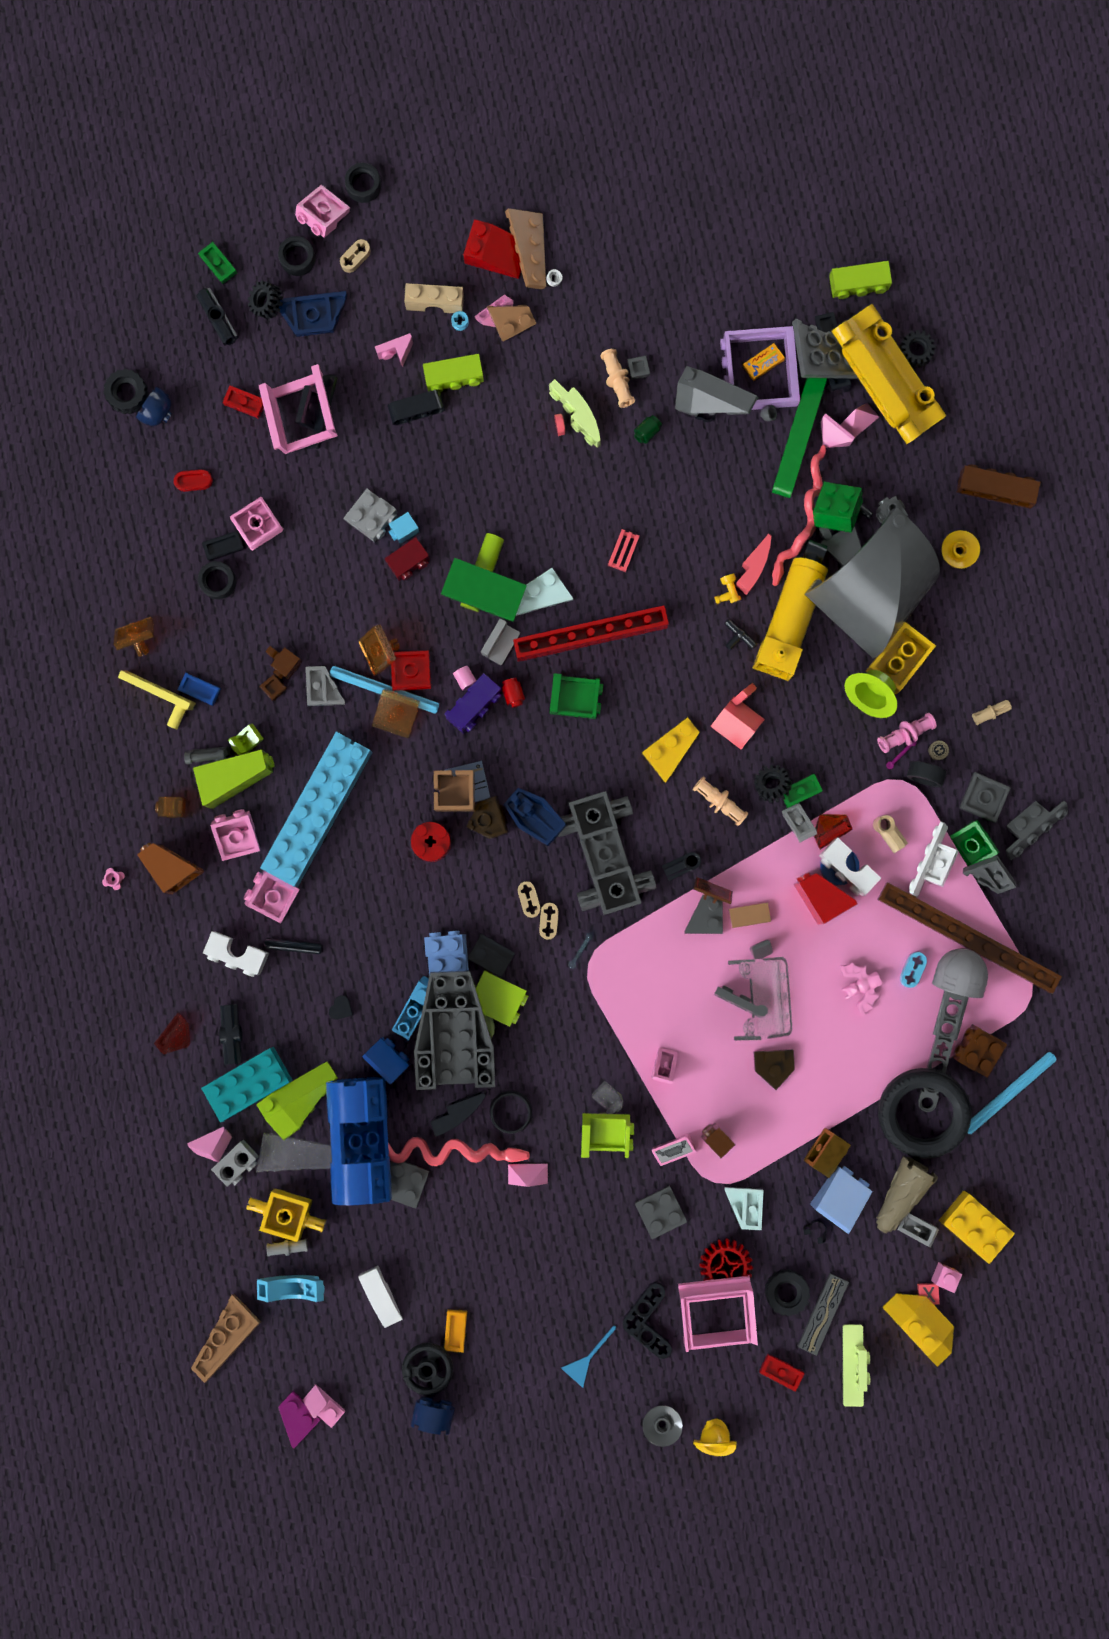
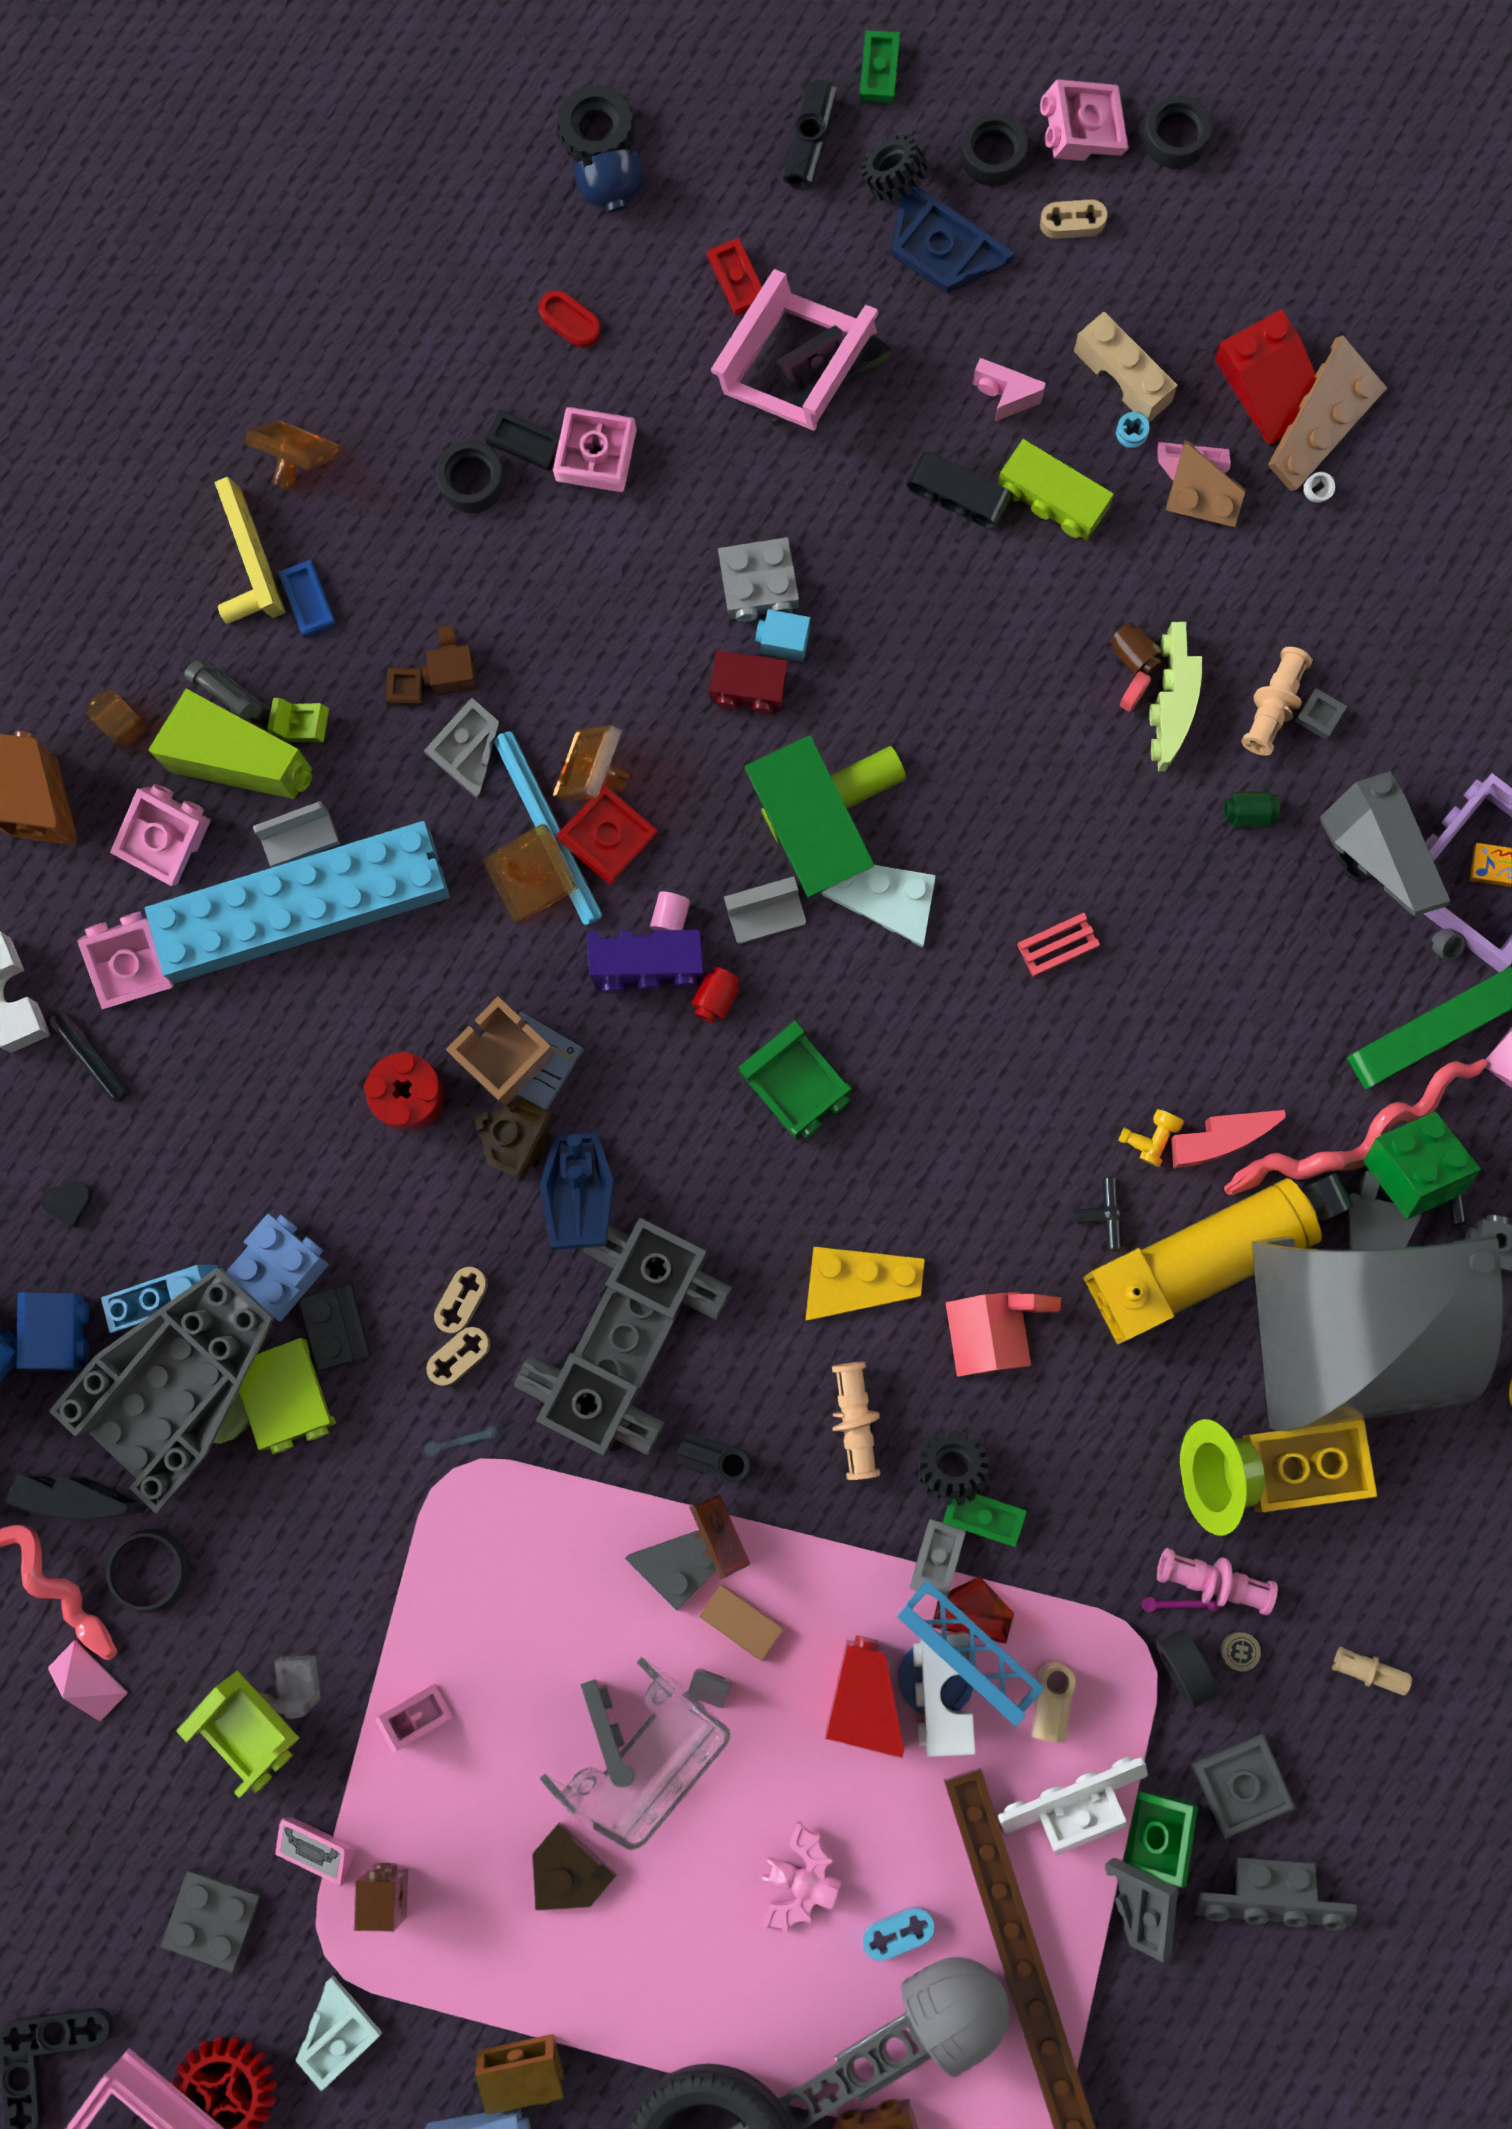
camera: 50 degrees right, 5 degrees down
(289, 784) = (297, 834): none -> light grey panel
(544, 407) = (1136, 649): none -> reddish brown brick
(591, 633) = (899, 1014): red brick -> none
(845, 850) = (960, 1664): none -> dark azure fence

